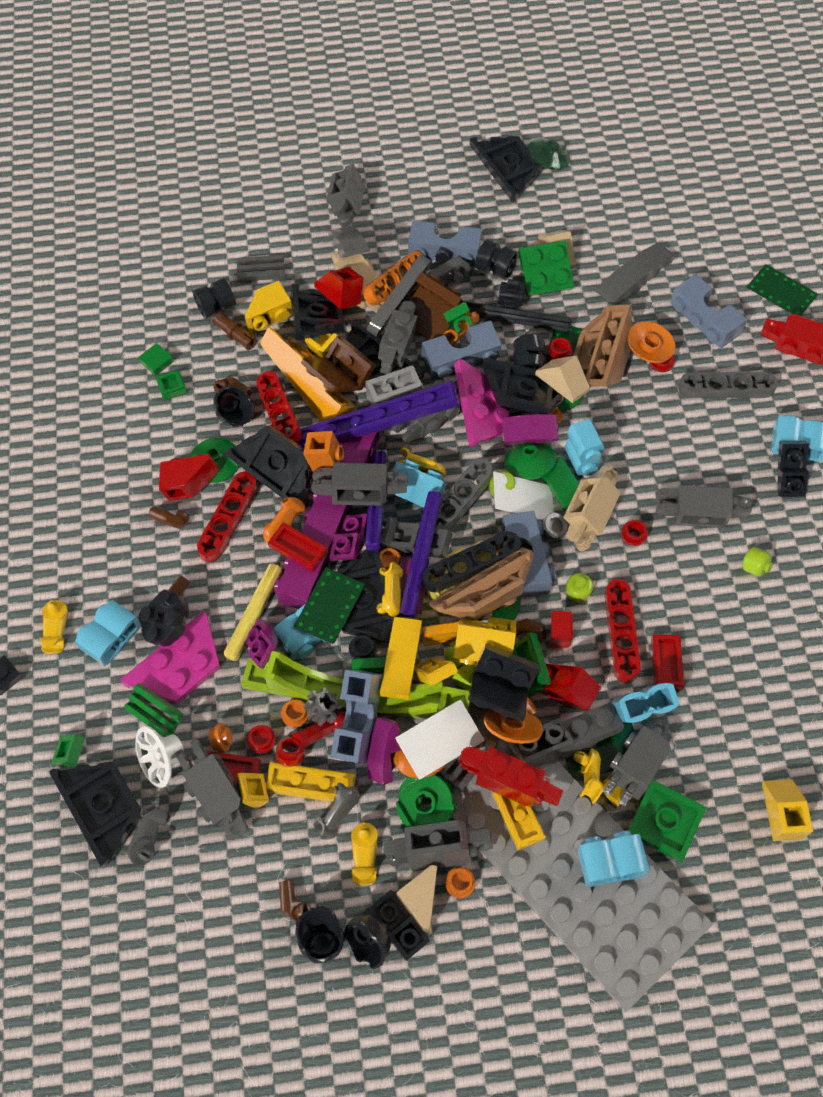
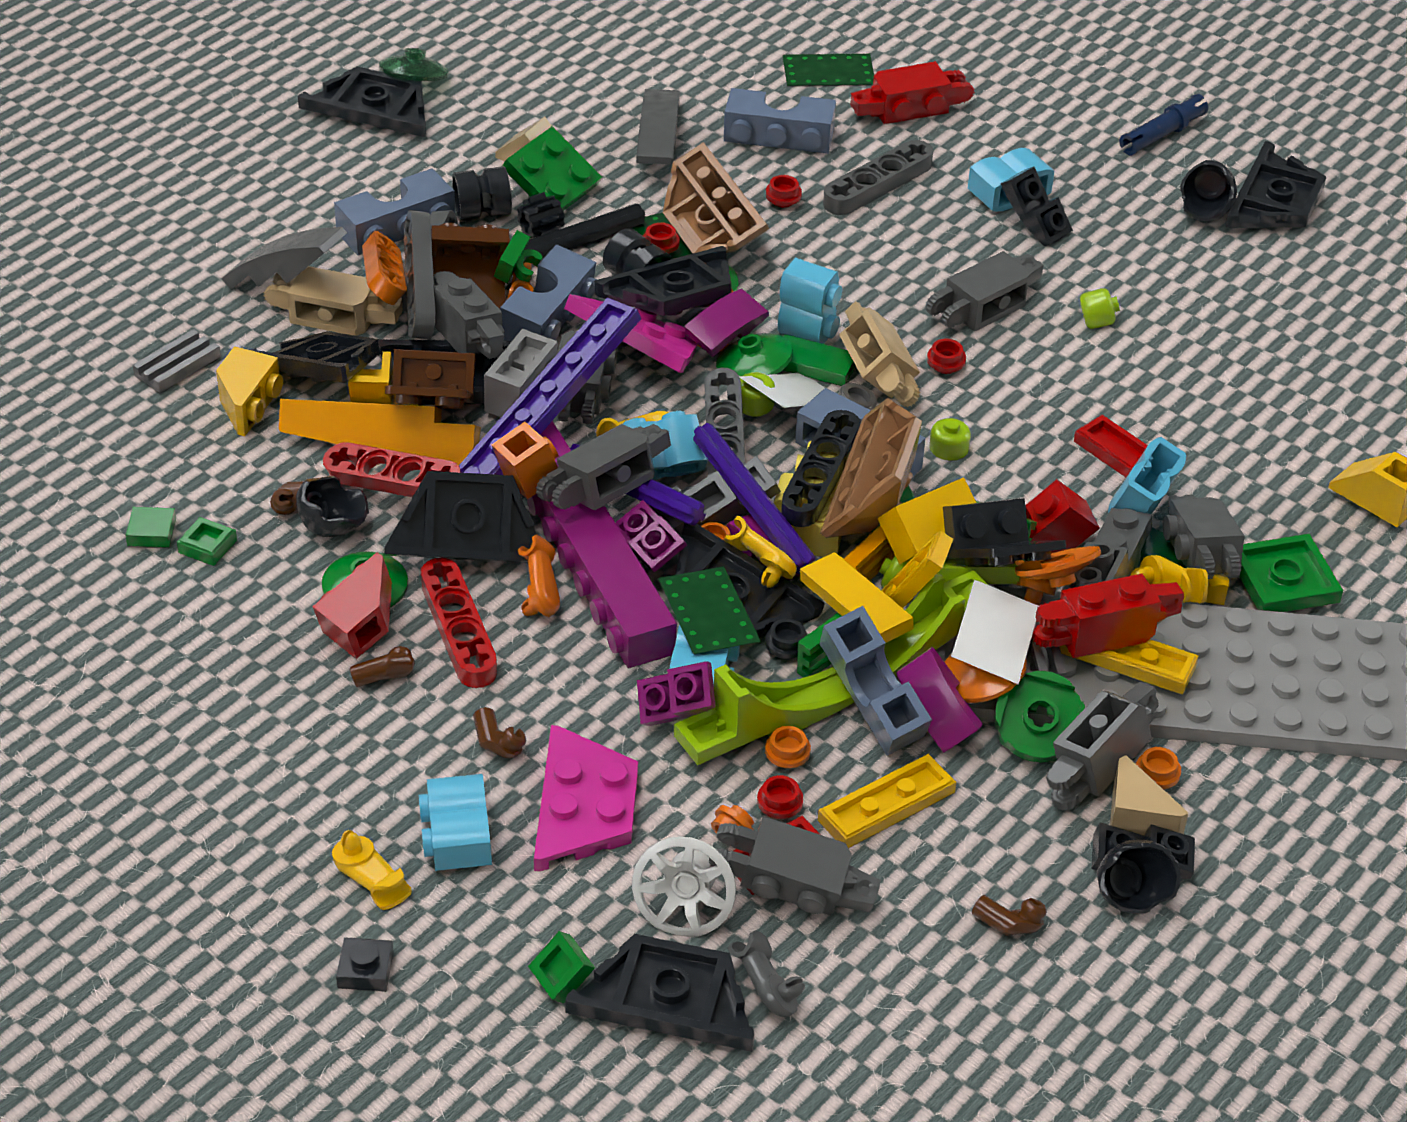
camera: 45 degrees left, 20 degrees down
(143, 710) = (611, 857): green tile -> none
(167, 608) = (501, 739): black plate -> none
(213, 298) = (160, 415): black wheel -> none
(234, 330) = (225, 438): reddish brown pin -> none
(253, 612) = (613, 691): light yellow axle -> none
(253, 789) = (854, 842): yellow slope -> none
(298, 547) = (603, 576): red tile -> none
(304, 738) = (830, 778): red piece -> none
(319, 935) = (1081, 909): black hair -> none
(322, 706) = (821, 705): dark grey gear -> none
(341, 287) = (329, 305): red slope -> none
(343, 803) = (955, 771): dark grey piece -> none
(346, 194) = (212, 221): dark grey hinge -> none
(364, 847) = (1015, 809): yellow piece -> none
(561, 629) = (984, 476): red slope -> none
(565, 377) = (711, 243): tan slope -> none
(612, 859) = (1284, 625): medium azure brick -> none
(619, 630) = (1078, 471): red beam -> none
(651, 342) = (760, 173): orange dish -> none

